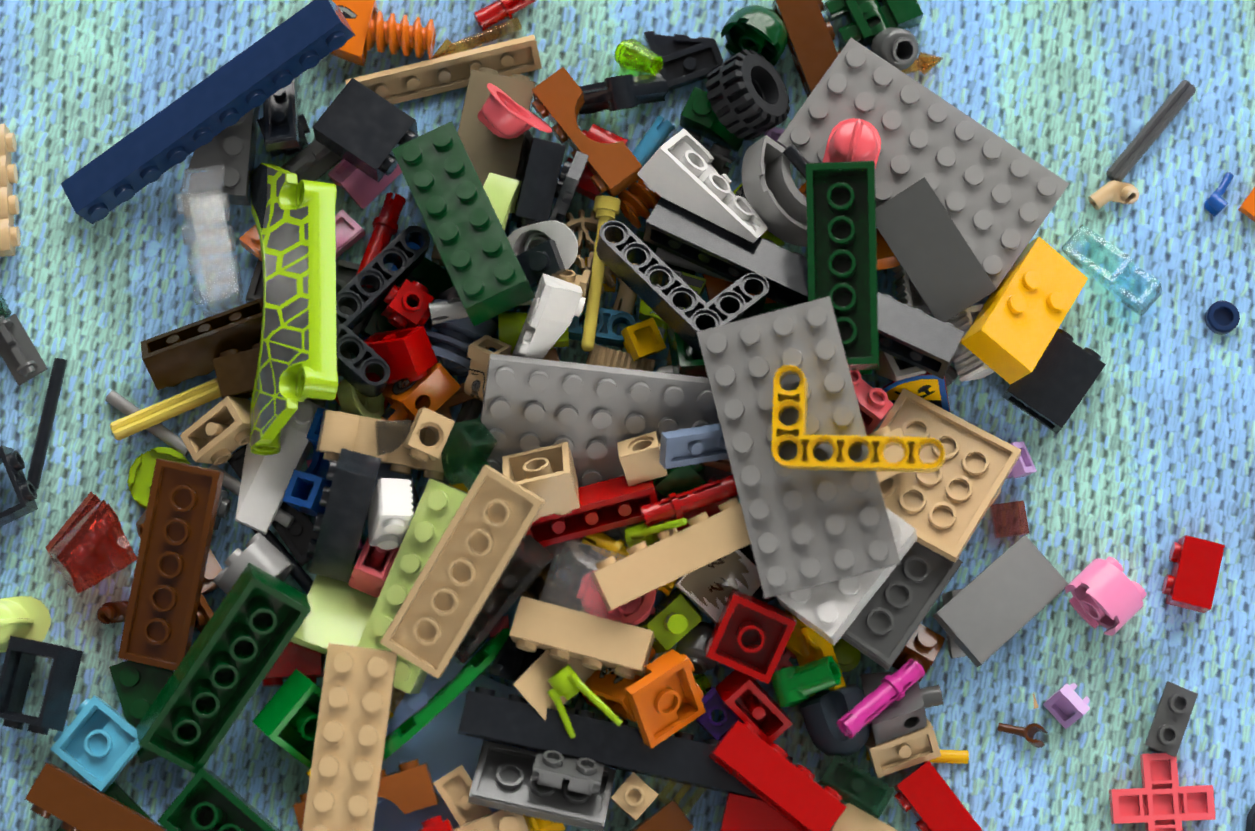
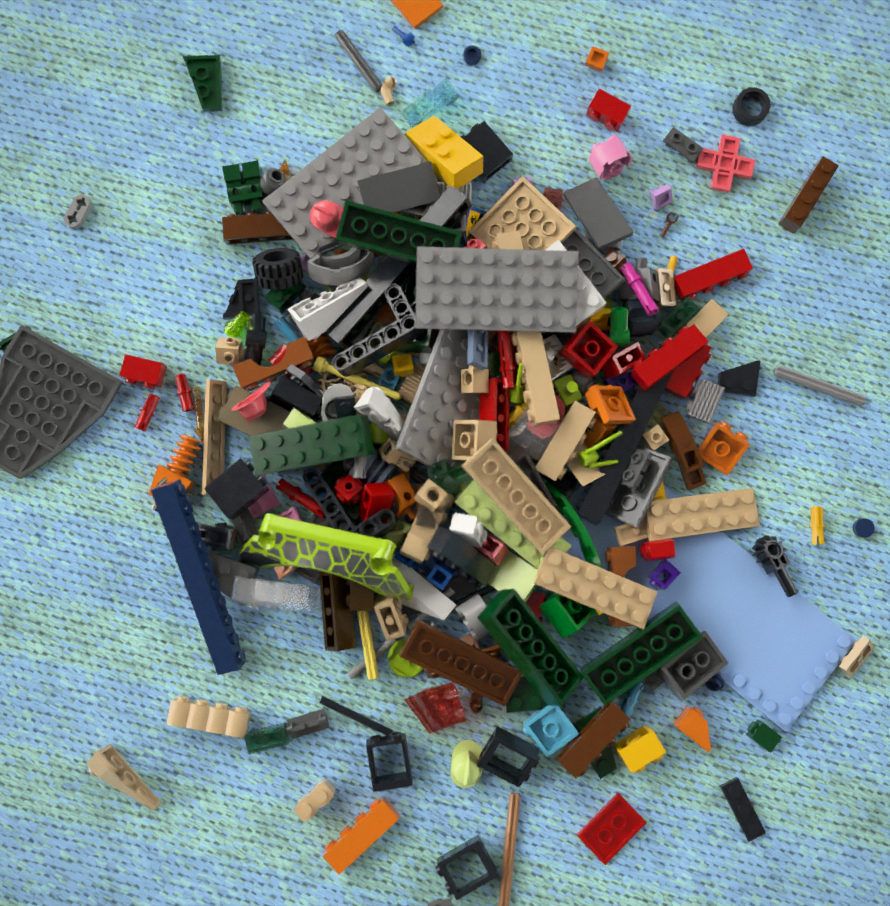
camera: 75 degrees left, 5 degrees up
(591, 58) = (229, 351): none -> tan brick
(756, 30) = (240, 255): dark green cylinder -> none
(841, 443) = (507, 262): yellow beam -> none

